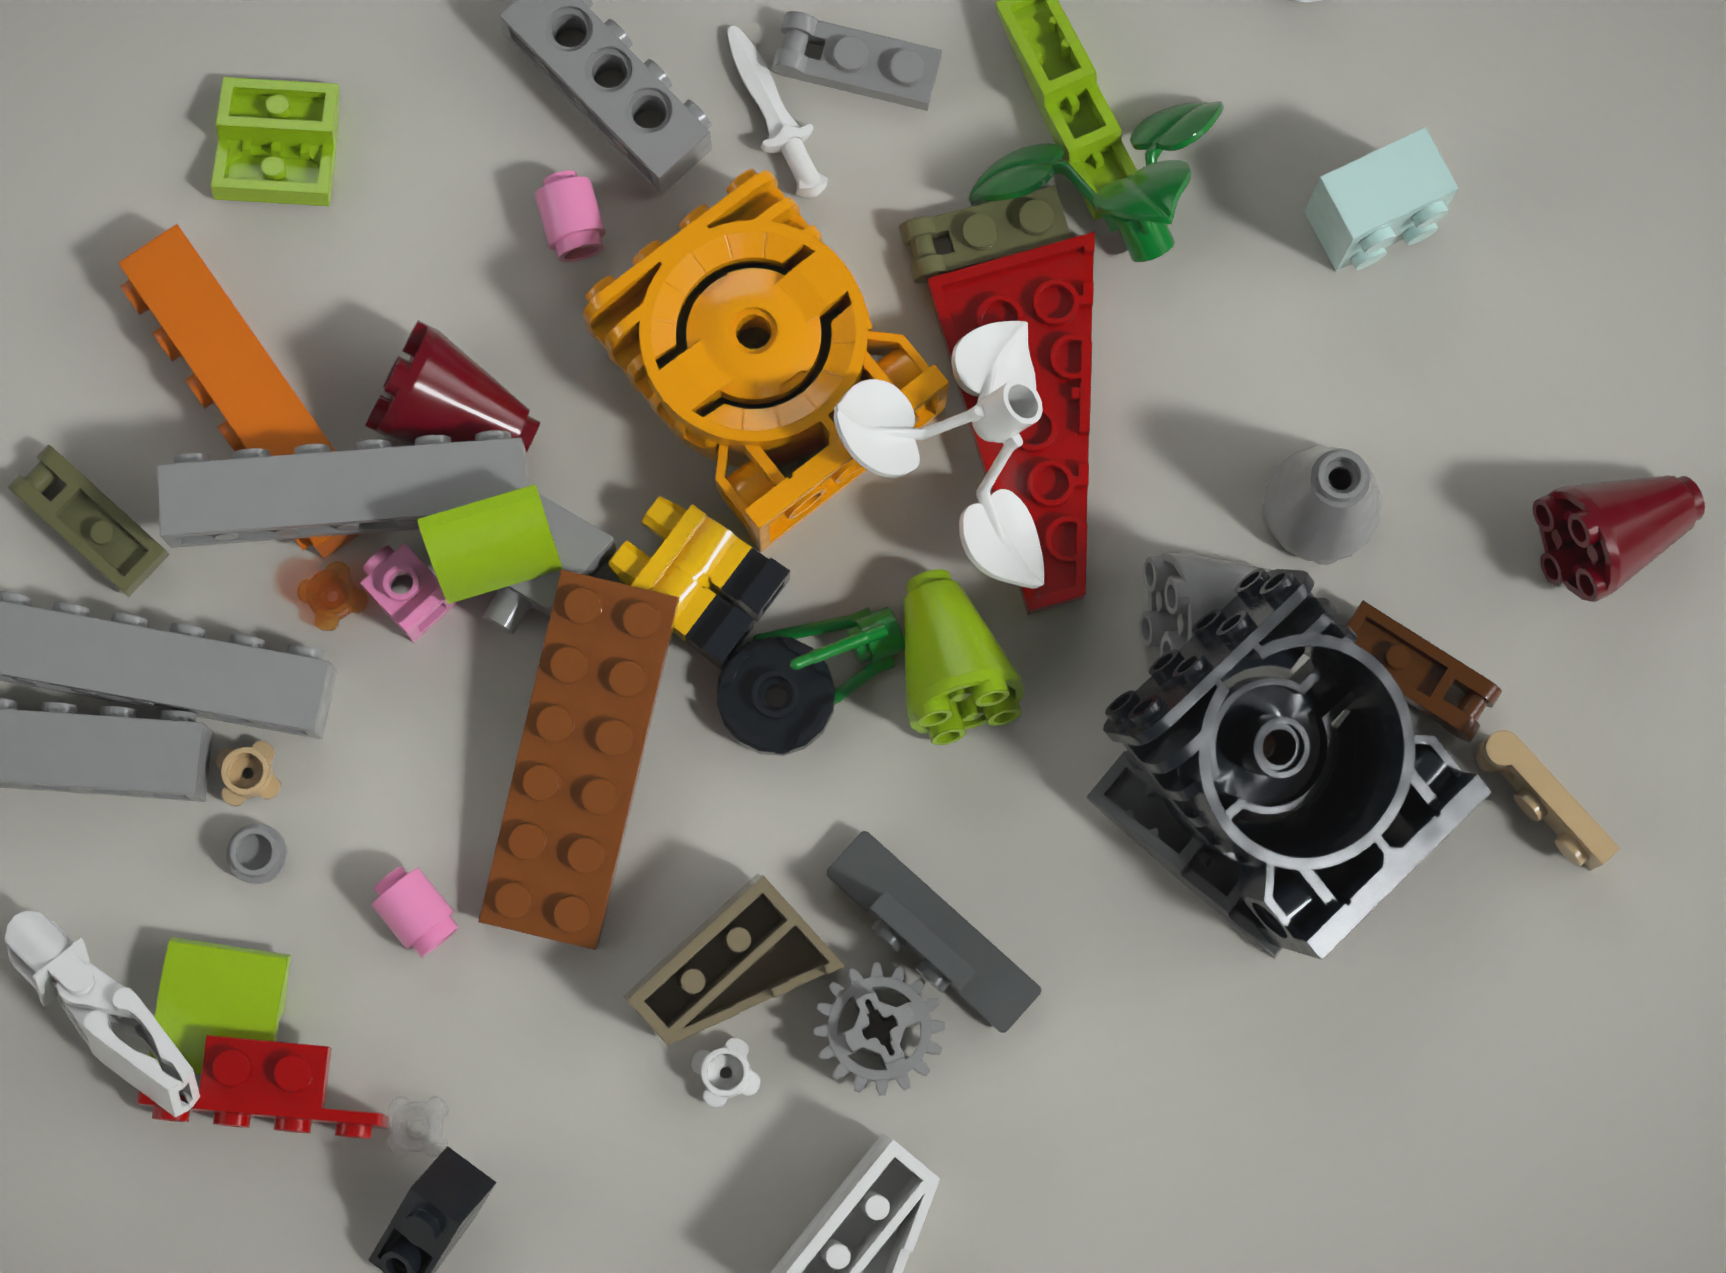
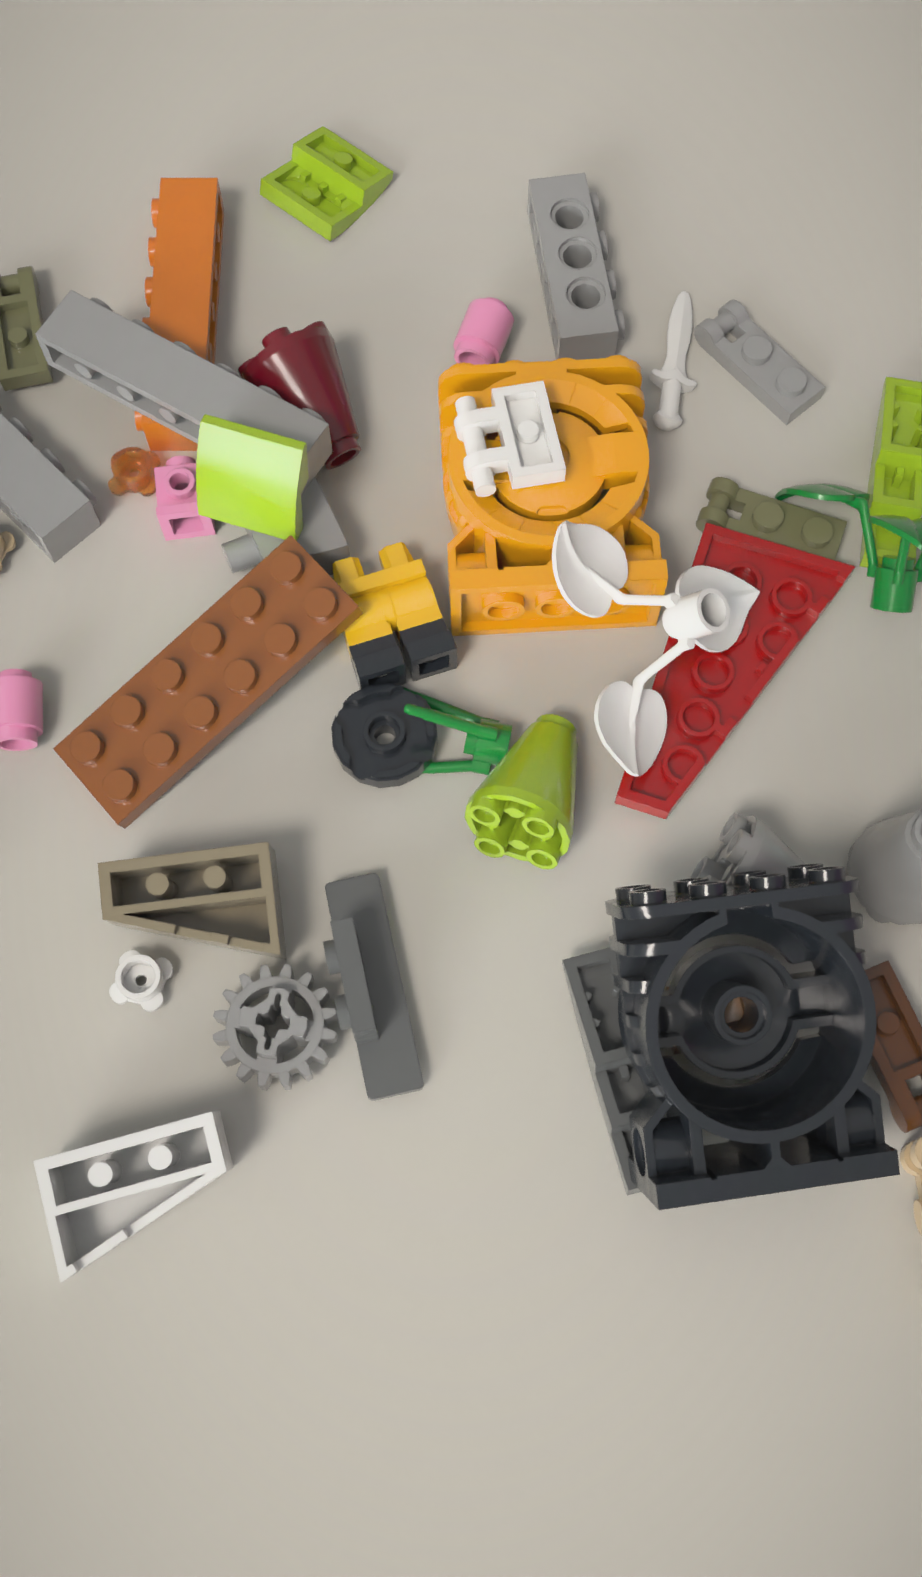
camera: 40 degrees right, 10 degrees down
(724, 329) = (526, 435): none -> white plate

